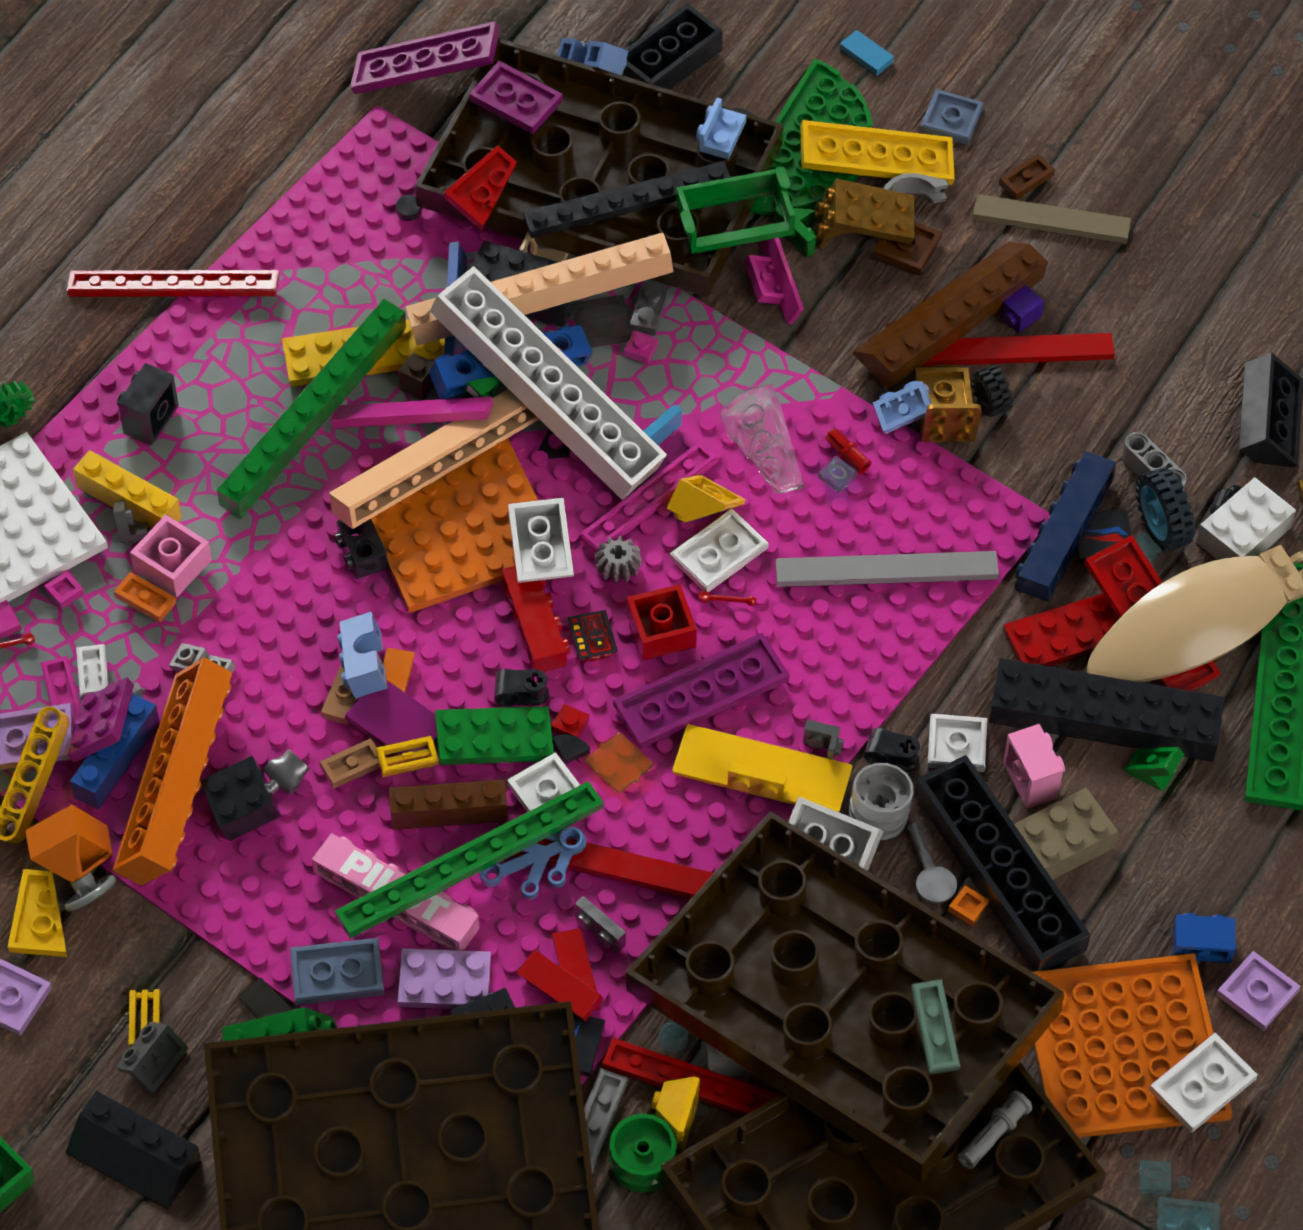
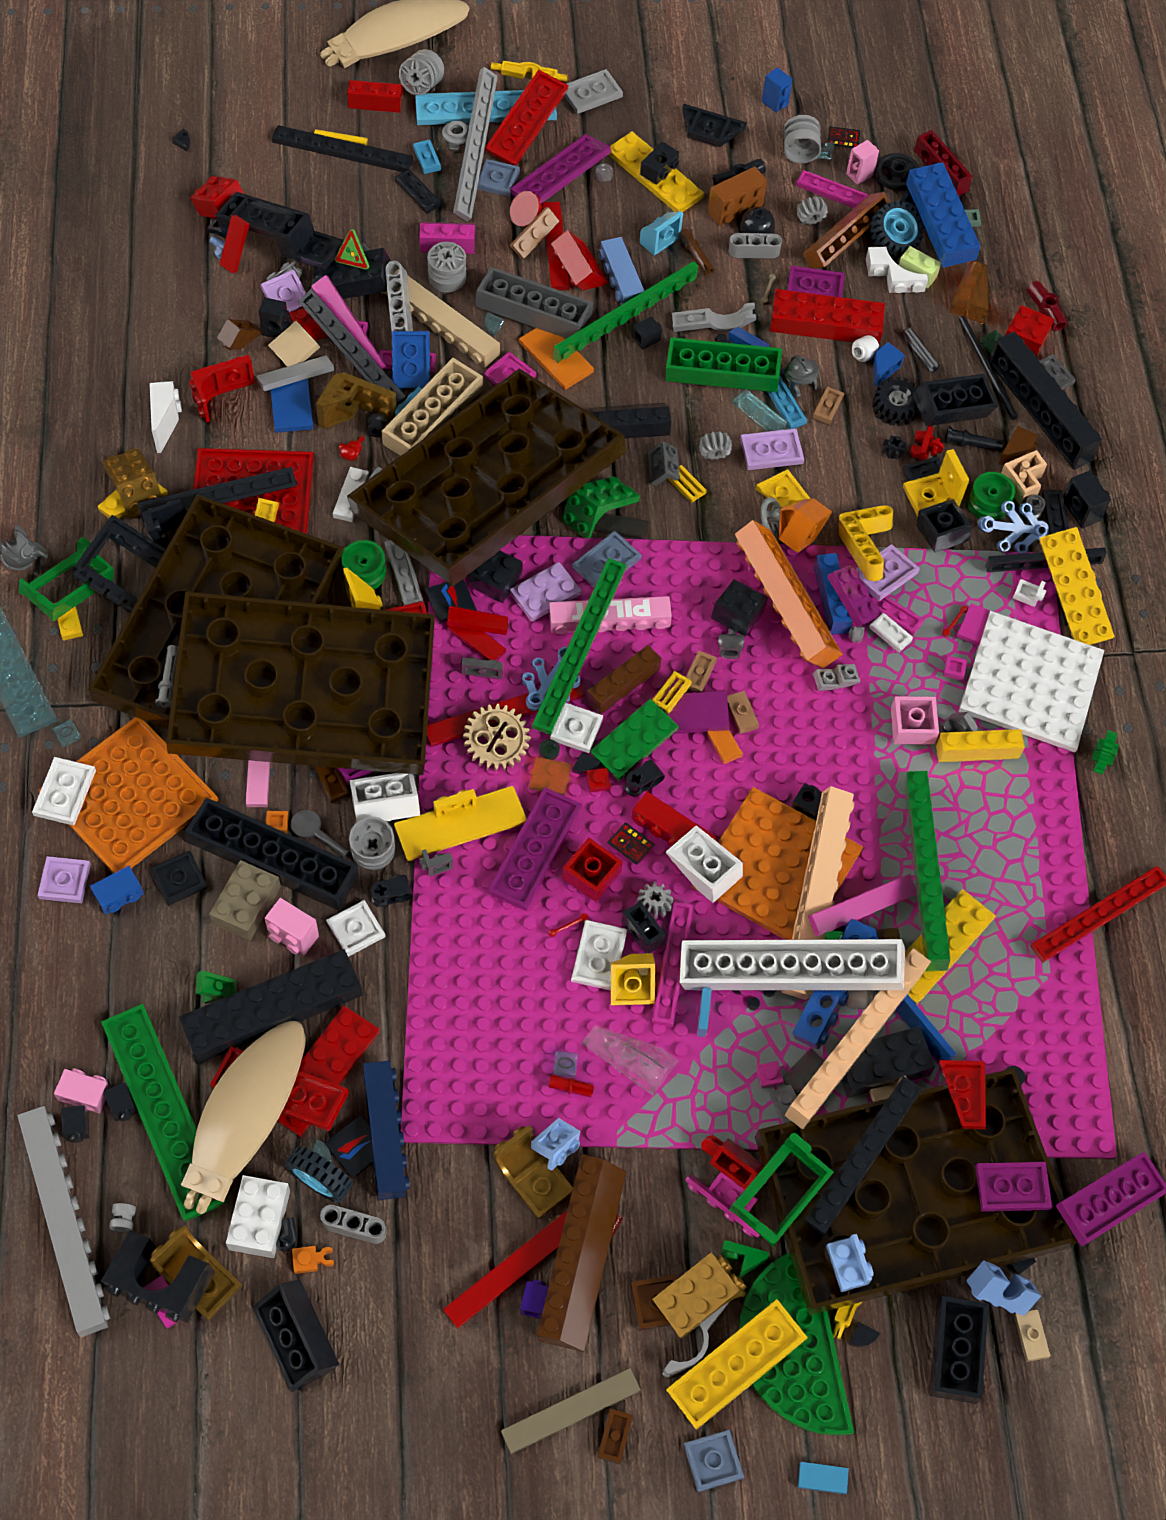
camera: 140 degrees right, 5 degrees up
(67, 1031) = (715, 445): none -> light grey gear
(145, 597) = (910, 689): orange plate -> none
(147, 403) = (1024, 803): black brick -> none
(363, 668) = (740, 715): medium blue arch -> none
(594, 28) = (1032, 1336): none -> tan plate
(601, 786) = (549, 749): none -> clear green tile
(649, 830) = (480, 728): none -> tan gear
(656, 534) = (643, 927): none -> black brick
(742, 296) = (732, 1160): none -> red brick
(886, 568) = (481, 1014): light grey tile -> none
(935, 1027) = (229, 675): sand green tile -> none
(992, 391) = (506, 1202): black tyre -> none
(1121, 917) = (179, 878): none -> black tile
(1216, 471) = (307, 1259): none -> orange plate

